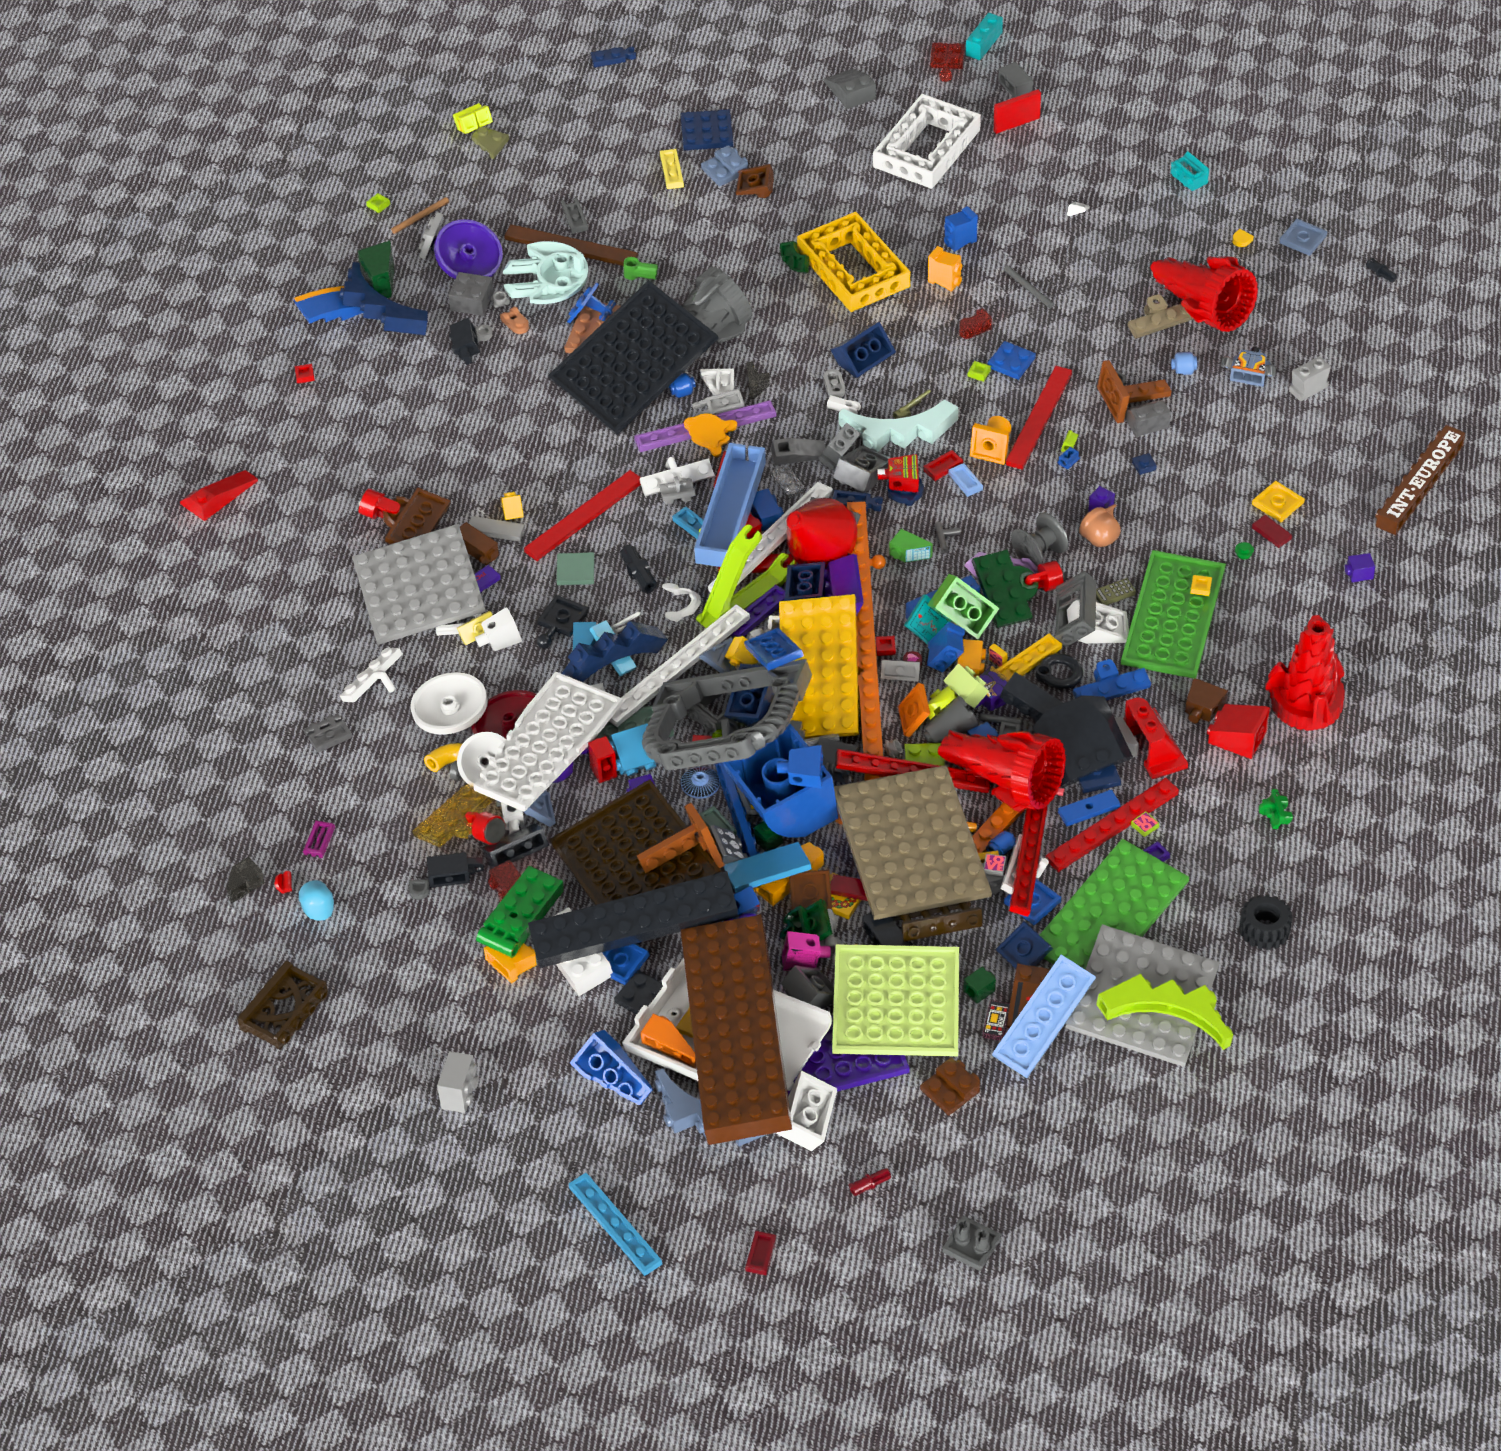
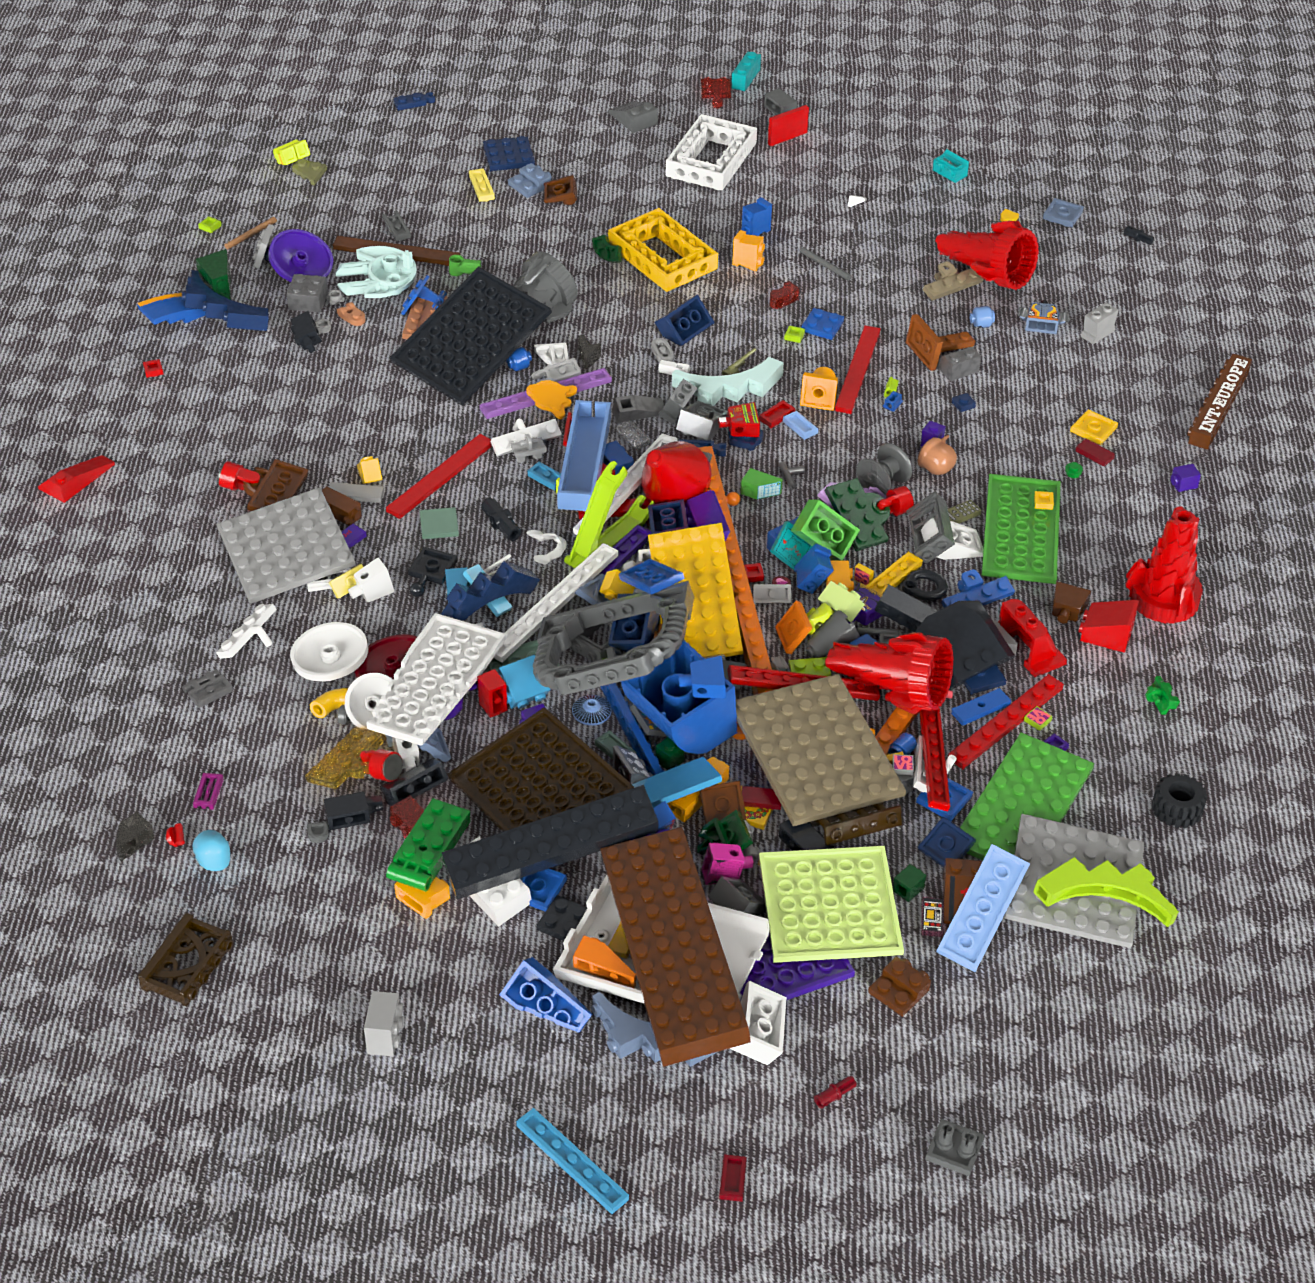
camera: 10 degrees left, 5 degrees down
(682, 842) = (606, 751): dark orange piece -> none

